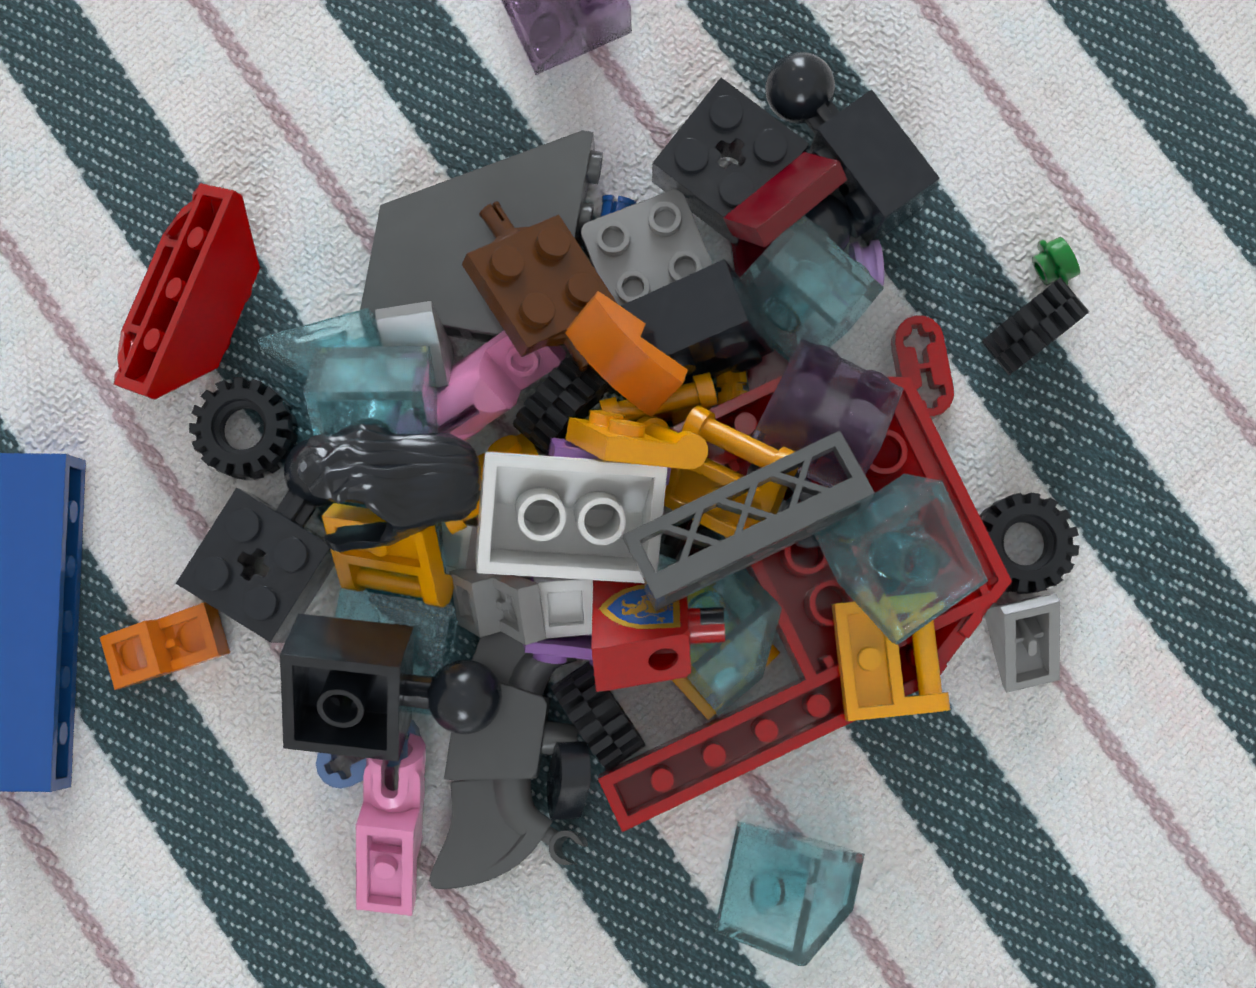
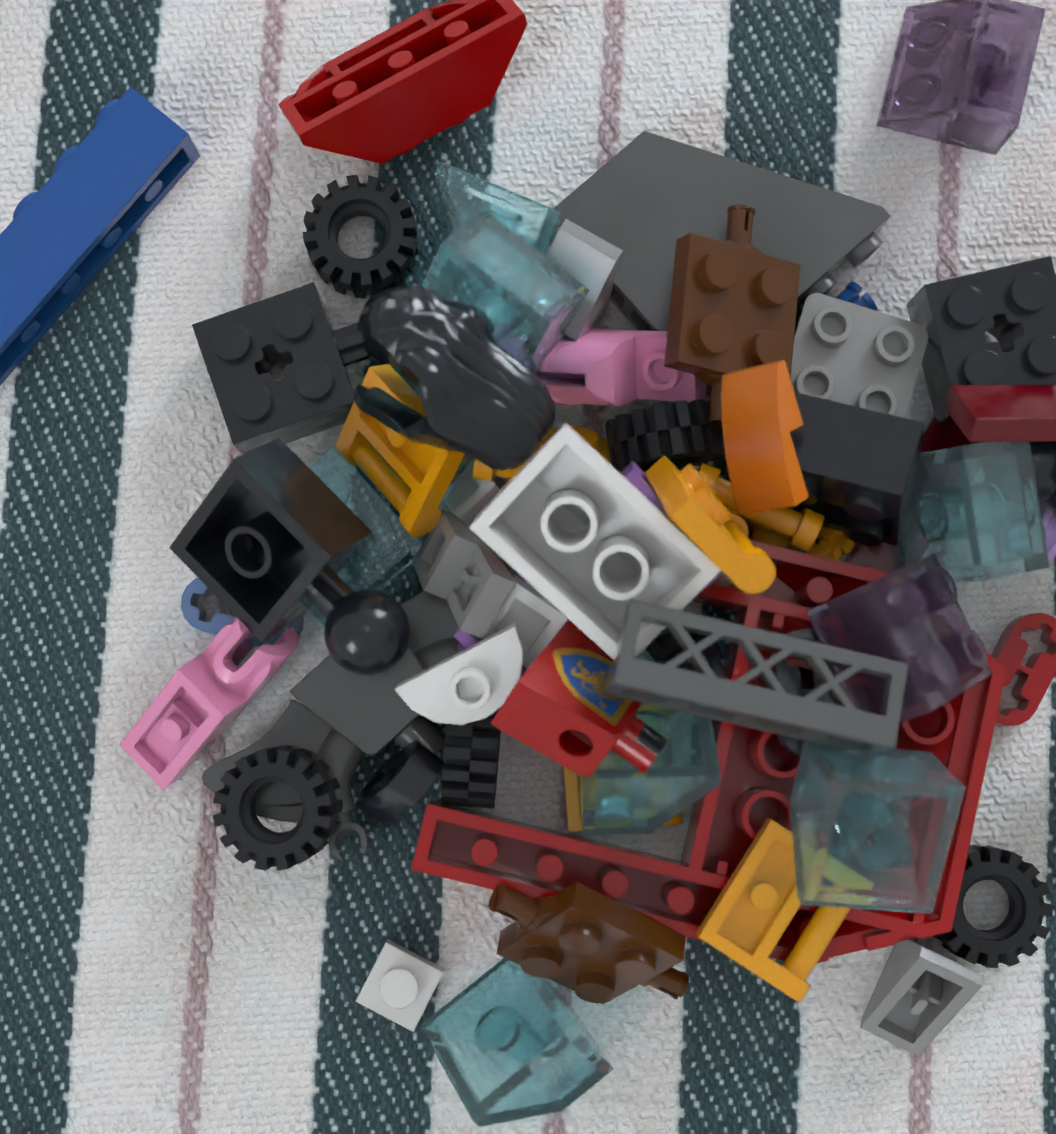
camera: 30 degrees right, 0 degrees up
(164, 645) = (138, 373): orange slope -> none
(491, 896) = (240, 817): none -> black tyre
(560, 675) = (468, 683): none -> white plate
(678, 915) = (400, 985): none -> white plate
(694, 483) = (730, 604): light orange plate -> none
(780, 784) = (589, 943): none -> reddish brown plate

